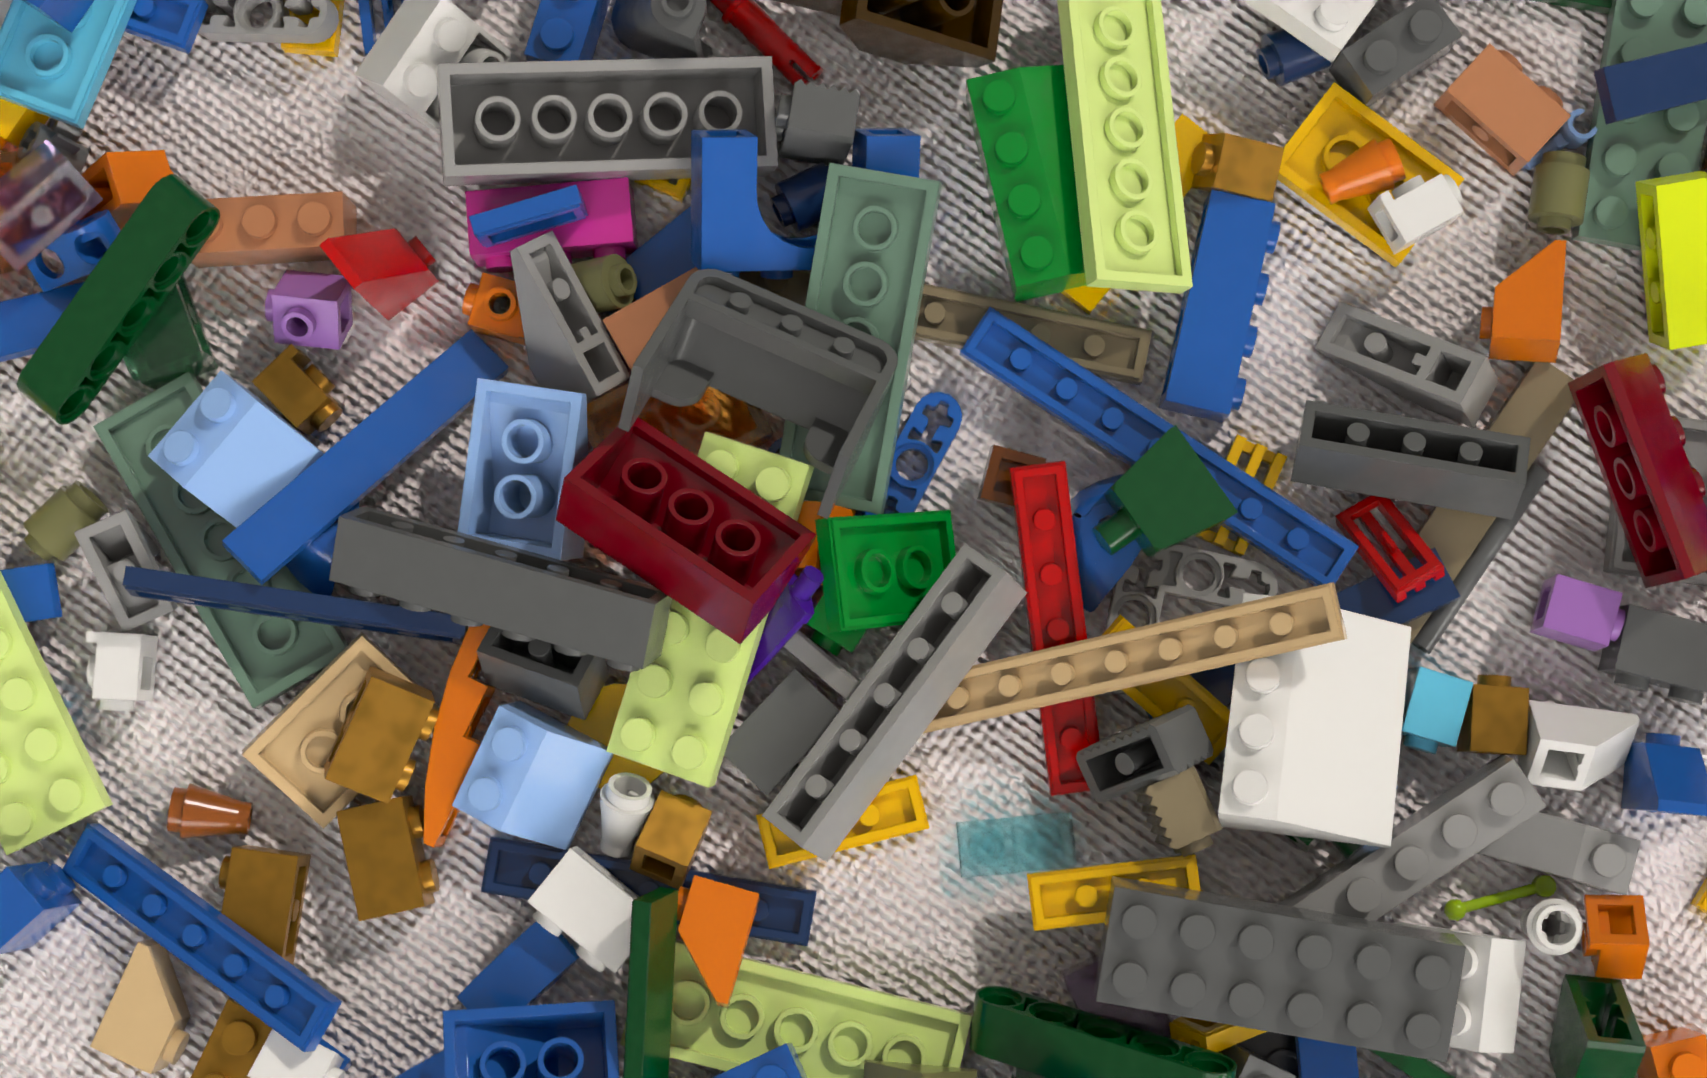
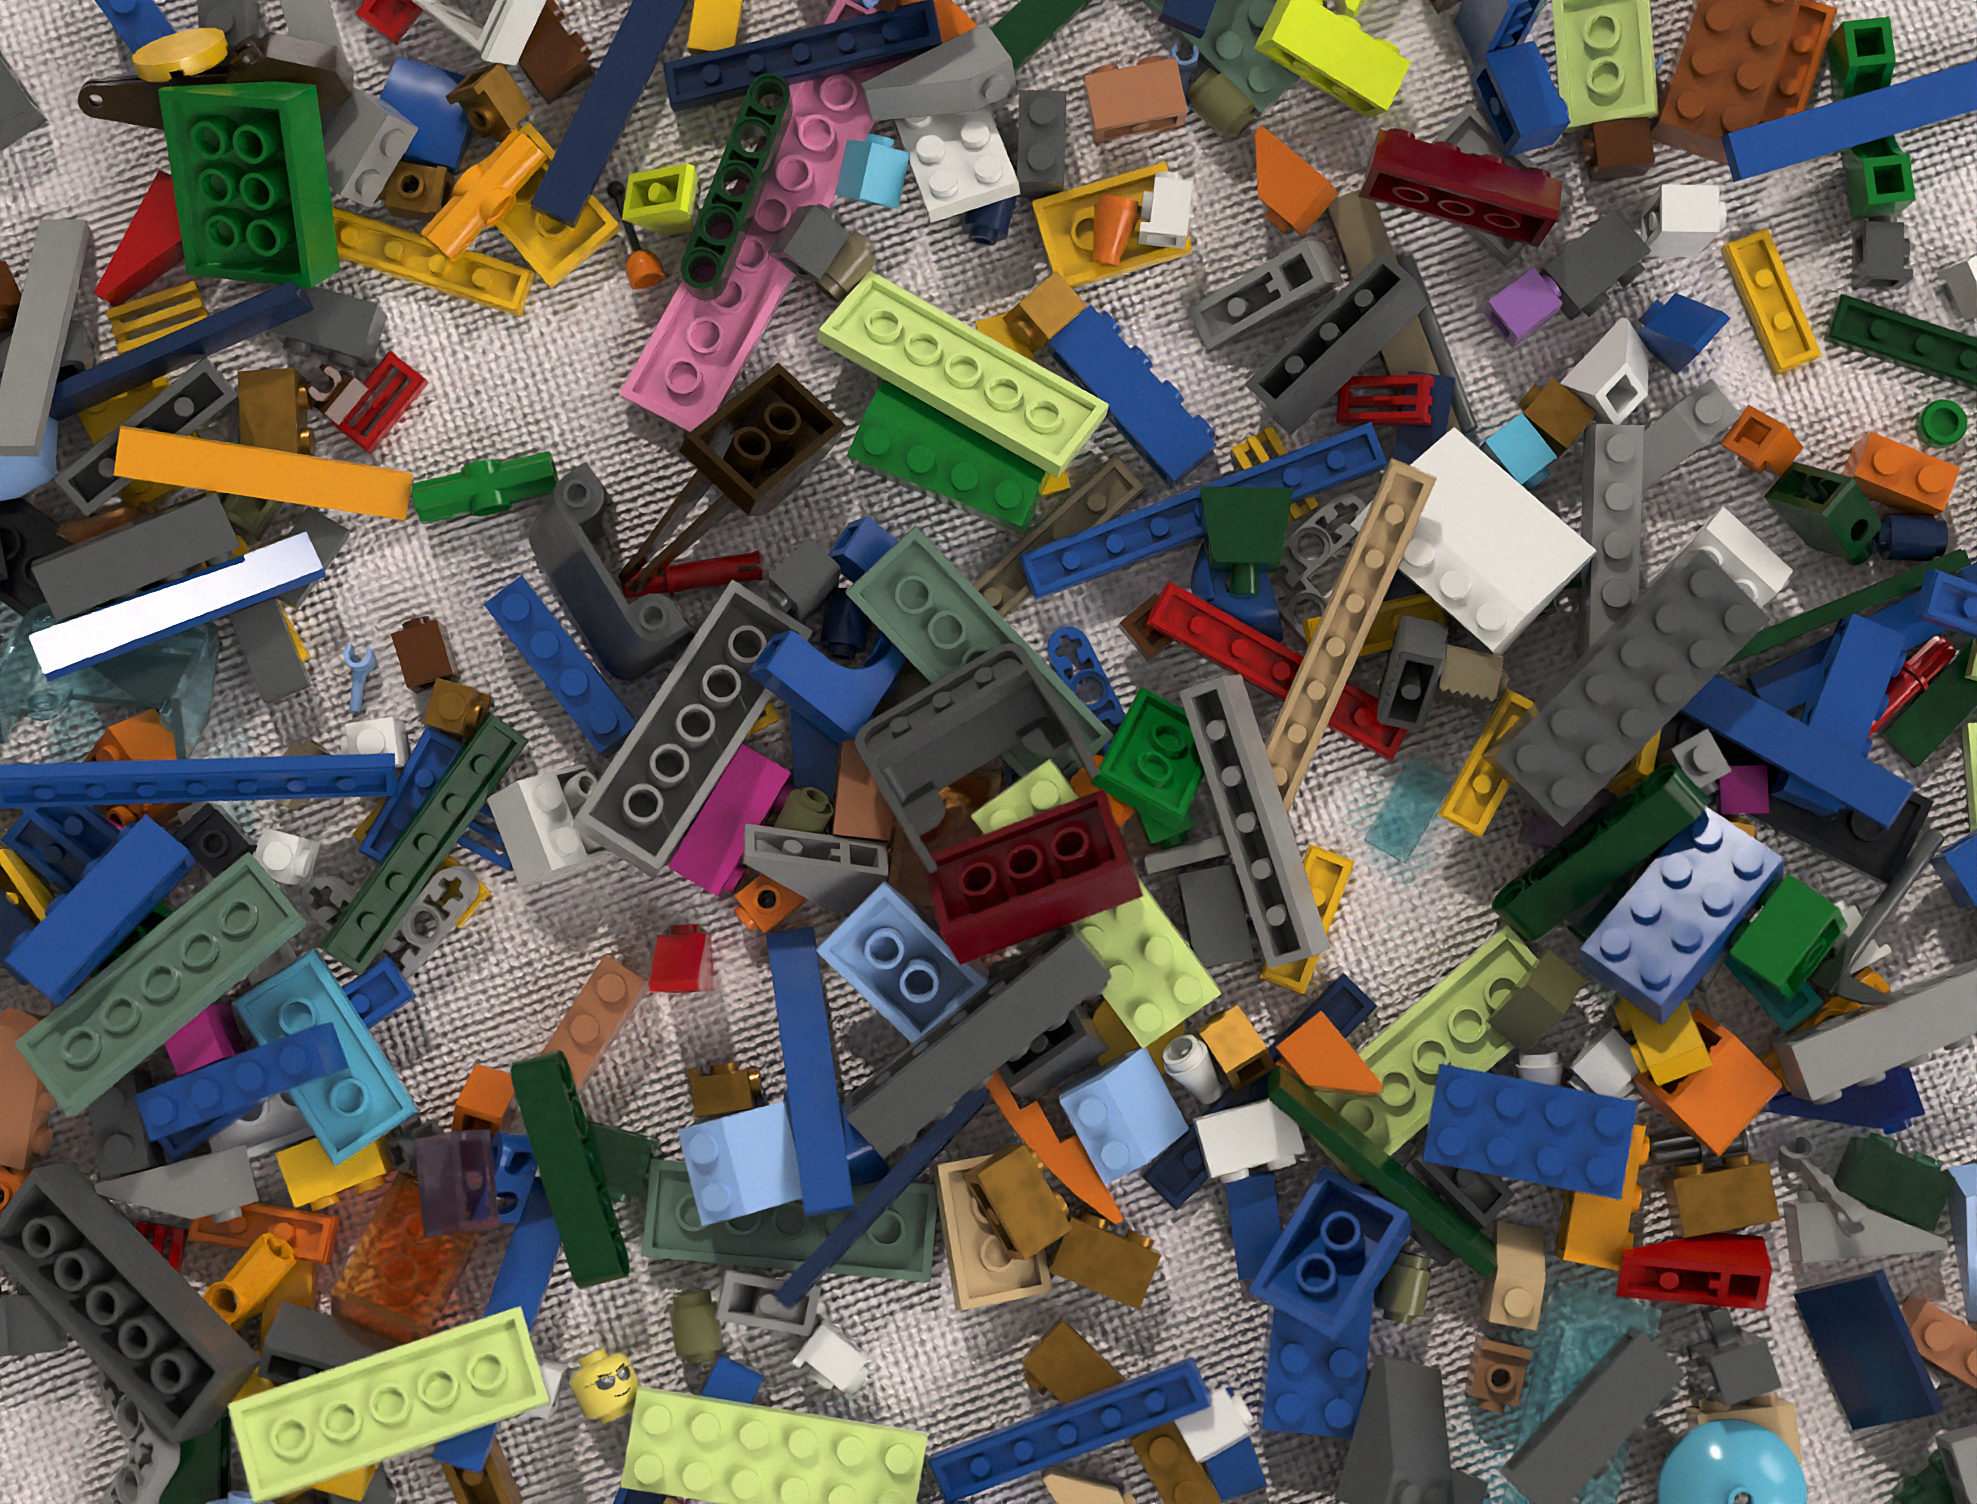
camera: 55 degrees left, 0 degrees up
(207, 813) = (981, 1368): dark orange cone -> none
(310, 309) = (670, 1039): medium lavender brick -> none
(529, 216) = (723, 832): blue tile -> none
(787, 616) = (1142, 849): dark purple bar -> none
(1541, 886) = (1691, 468): lime hinge -> none
(1562, 930) = (1733, 477): white cone -> none

